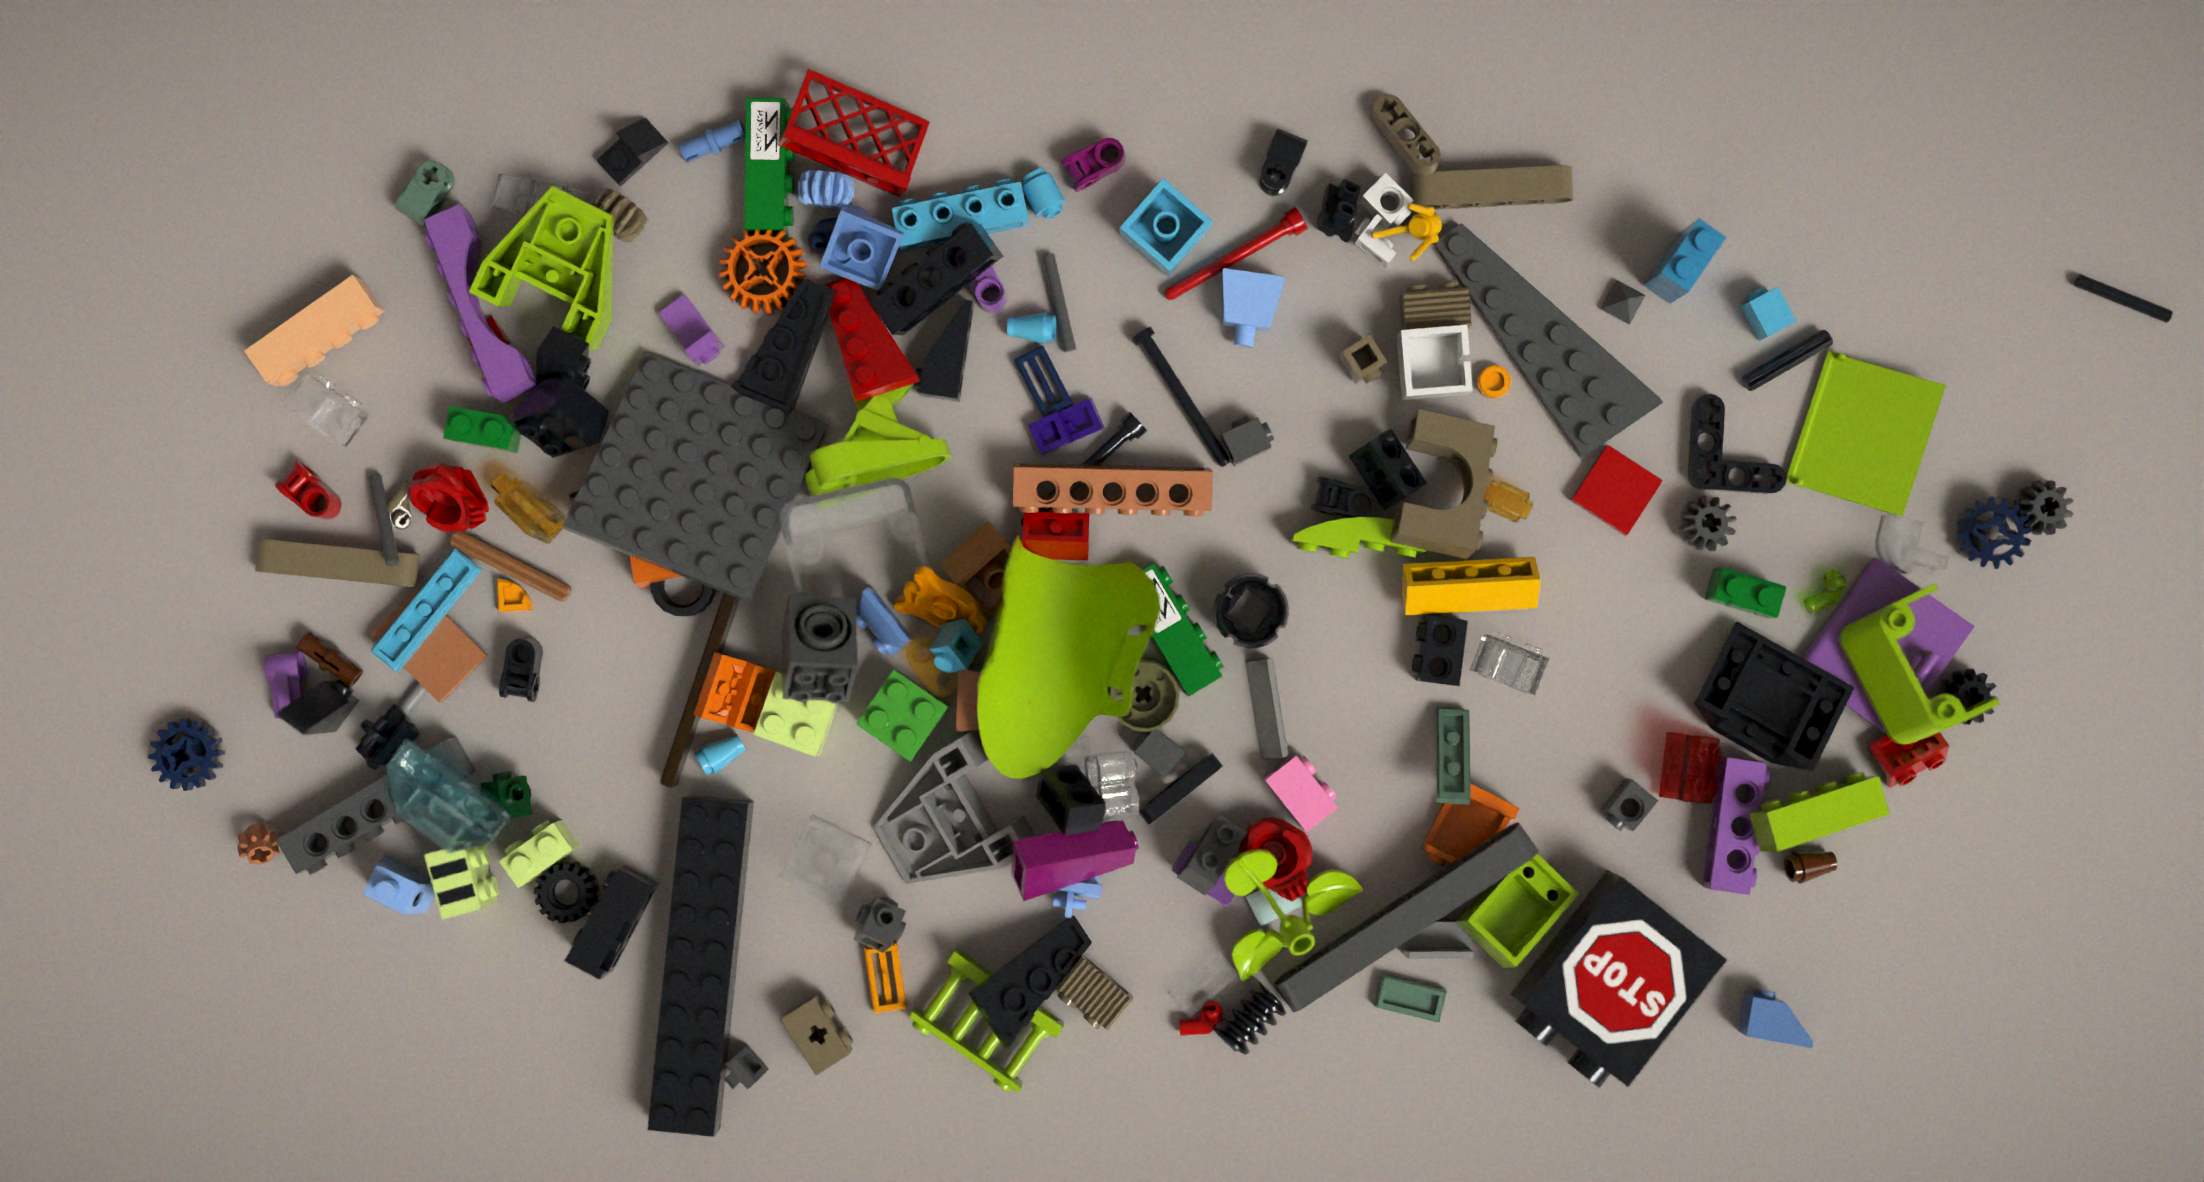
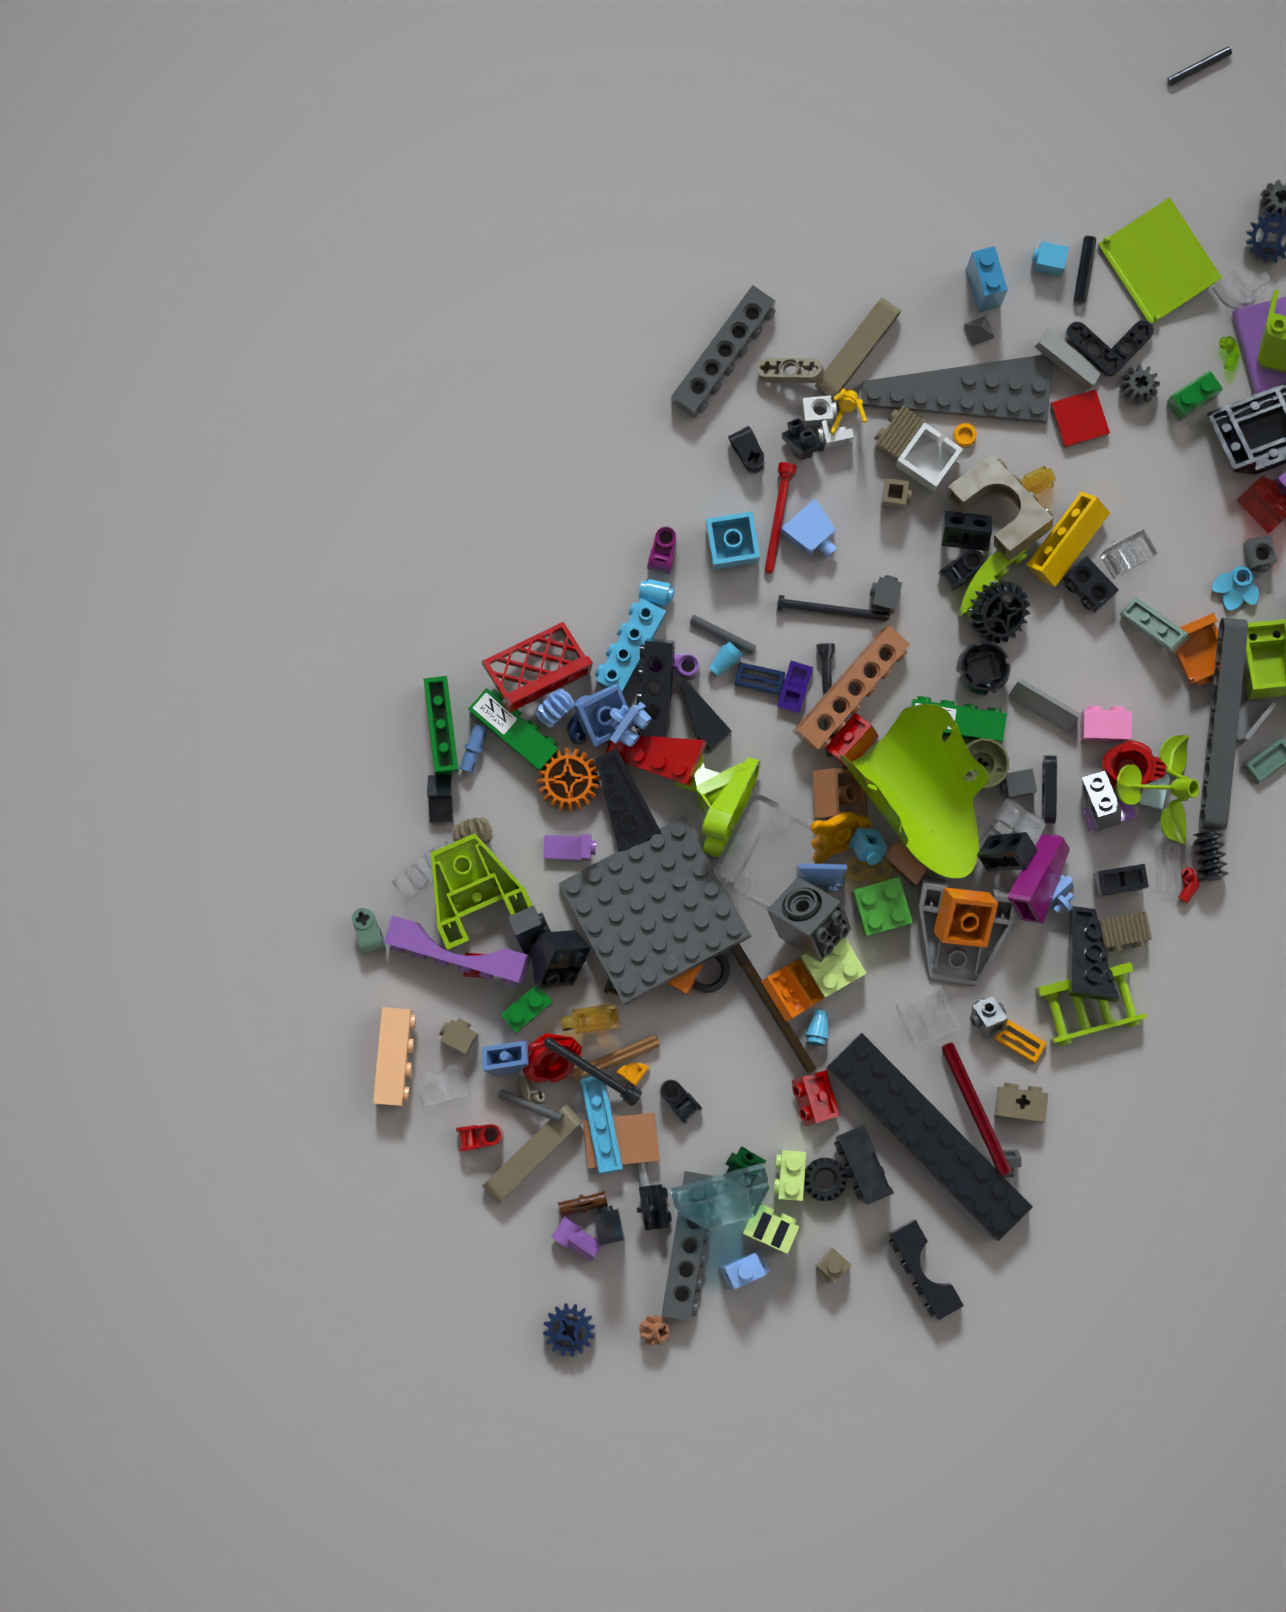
camera: 50 degrees left, 5 degrees down
(395, 382) = (458, 1035): none -> dark tan brick
(406, 448) = (505, 1058): none -> medium blue slope
(481, 975) = (832, 1265): none -> dark tan brick
(484, 612) = (629, 1093): none -> black piece
(543, 1113) = (940, 1297): none -> black arch
(643, 812) = (815, 1098): none -> red bracket
(705, 85) = (441, 725): none -> green brick
(769, 992) = (976, 1109): none -> dark red axle
(871, 275) = (635, 716): none -> light blue hips
(959, 813) = (965, 917): none -> orange brick
(1144, 945) = (1121, 880): none -> black brick
(1323, 564) = (991, 607): none -> black gear
(1448, 30) = (753, 301): none -> dark grey brick
(1564, 810) = (1234, 591): none -> medium azure plate
(1671, 423) = (1068, 359): none -> light grey slope

